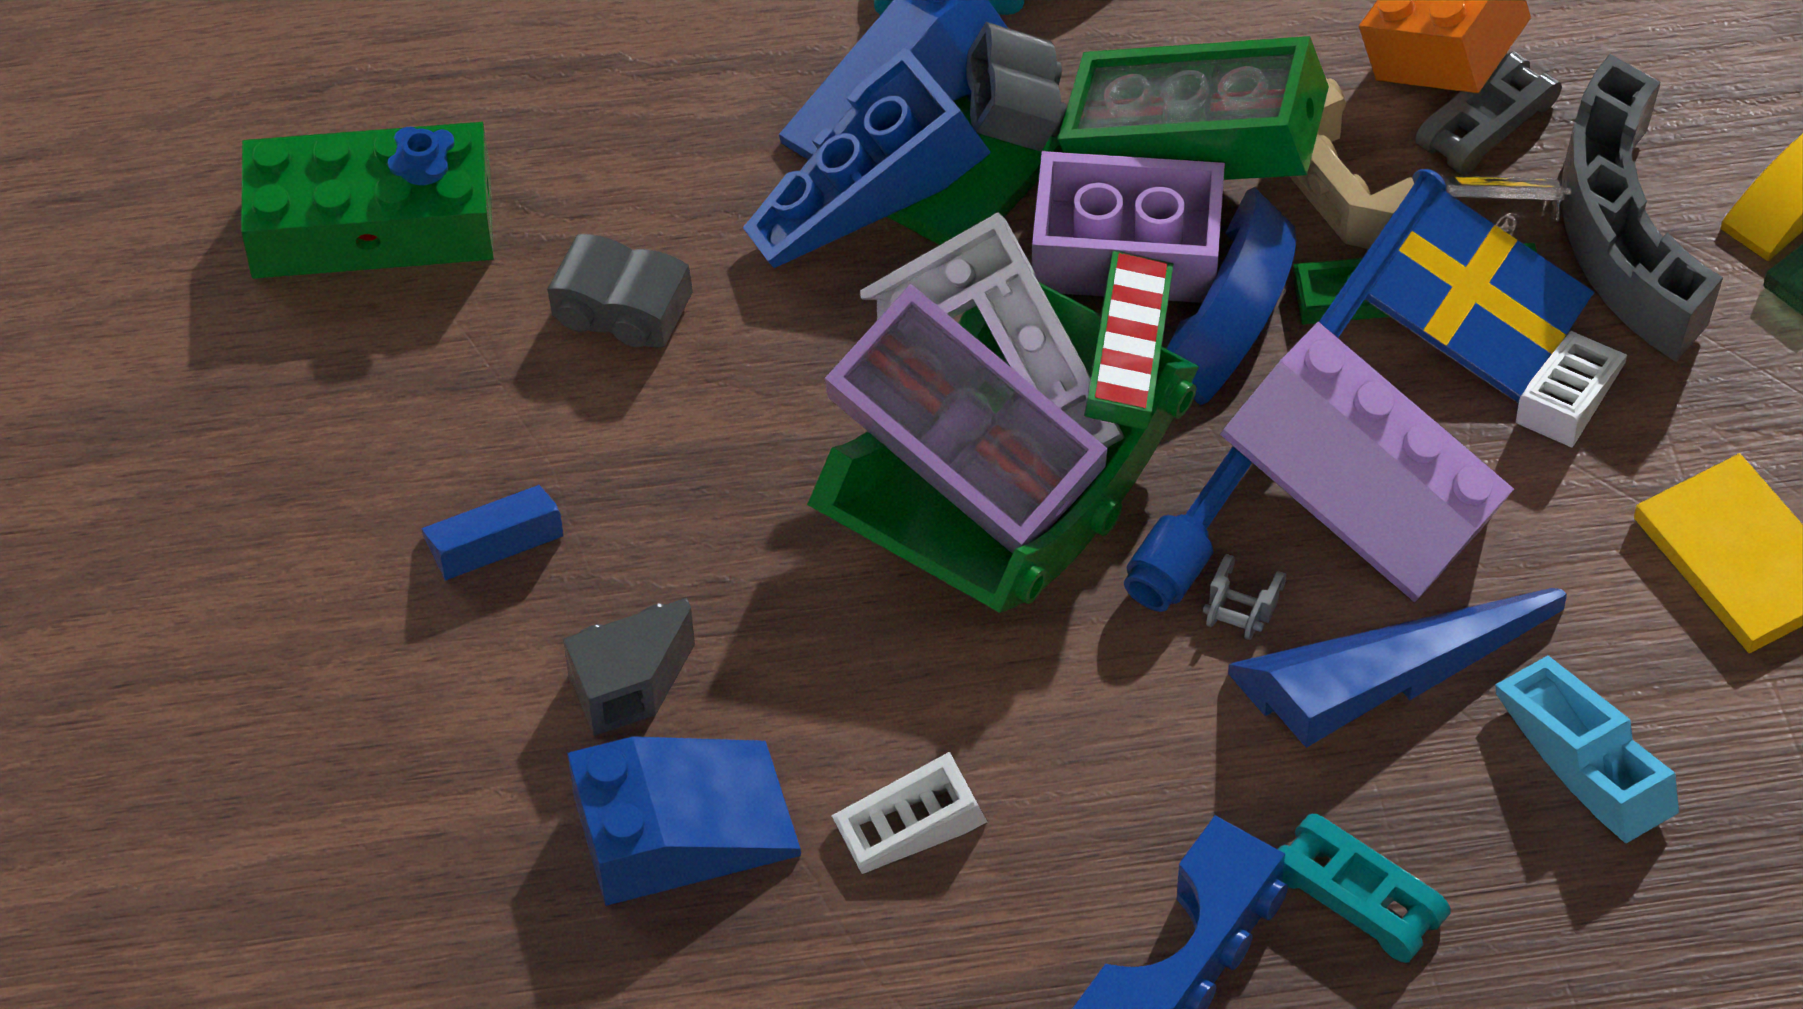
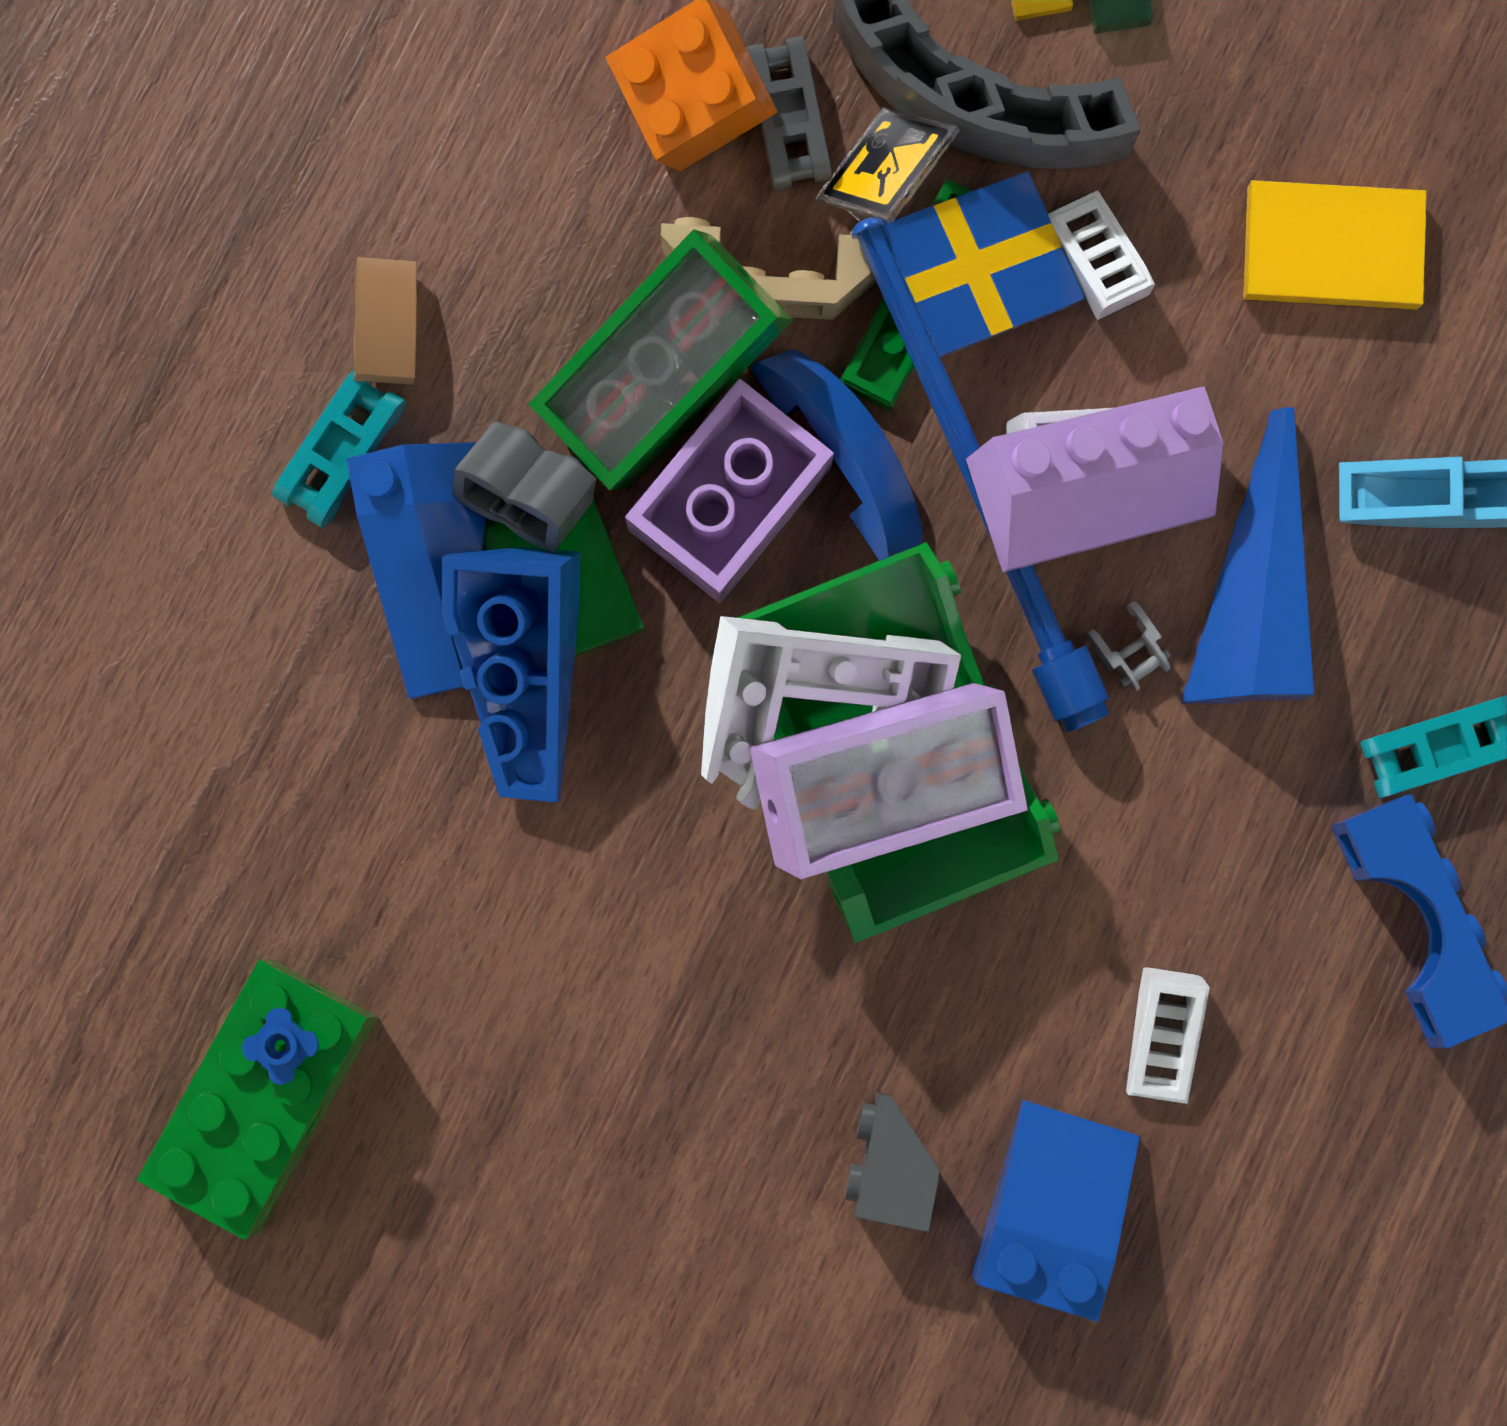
camera: 60 degrees left, 30 degrees up
(493, 531) = (674, 1192): blue slope -> none
(620, 291) = (503, 944): dark grey brick -> none
(1129, 340) = (883, 587): tile -> none

